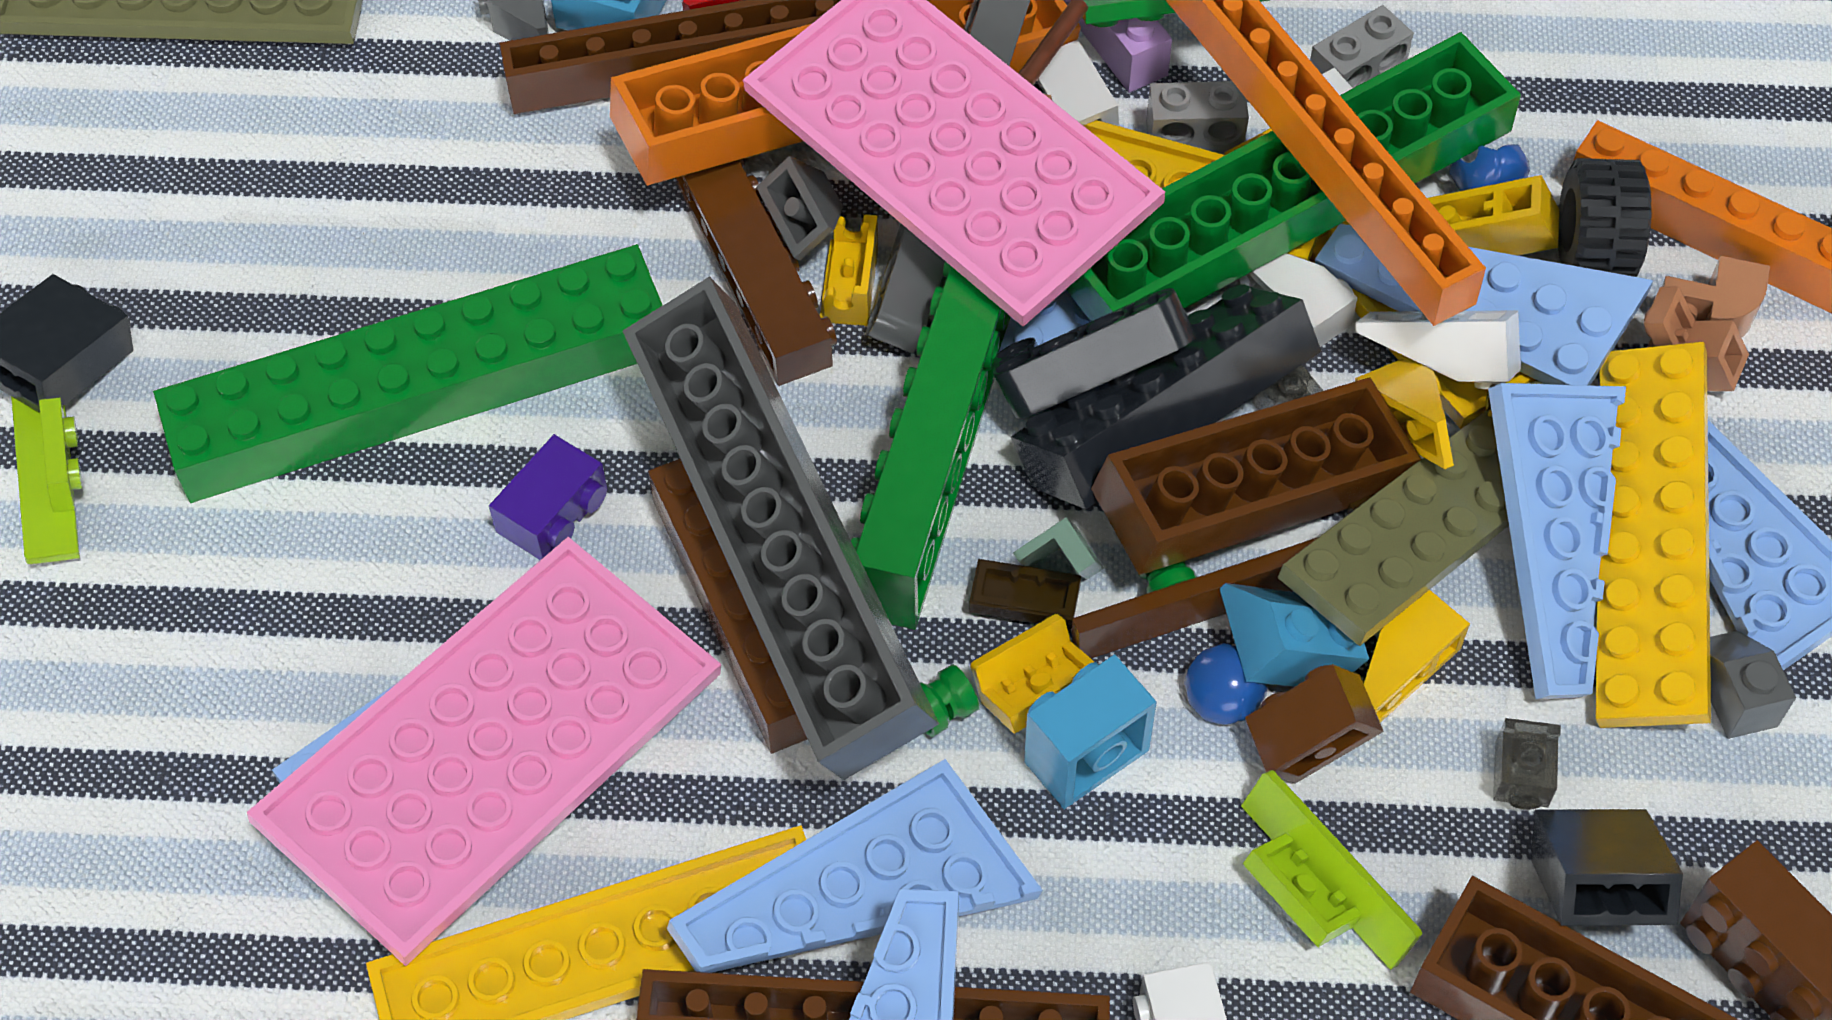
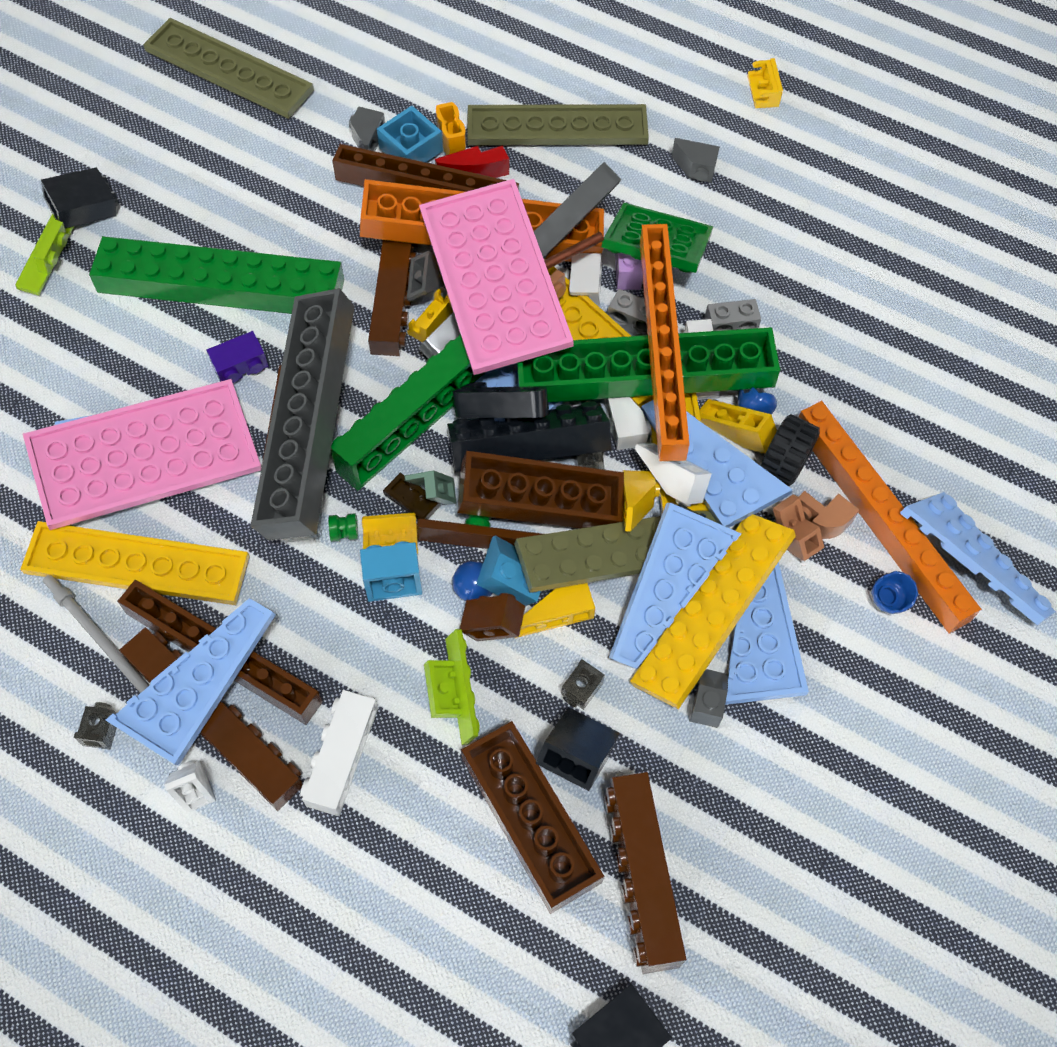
camera: 25 degrees right, 5 degrees up
(849, 875) = (287, 585): light blue wing -> none

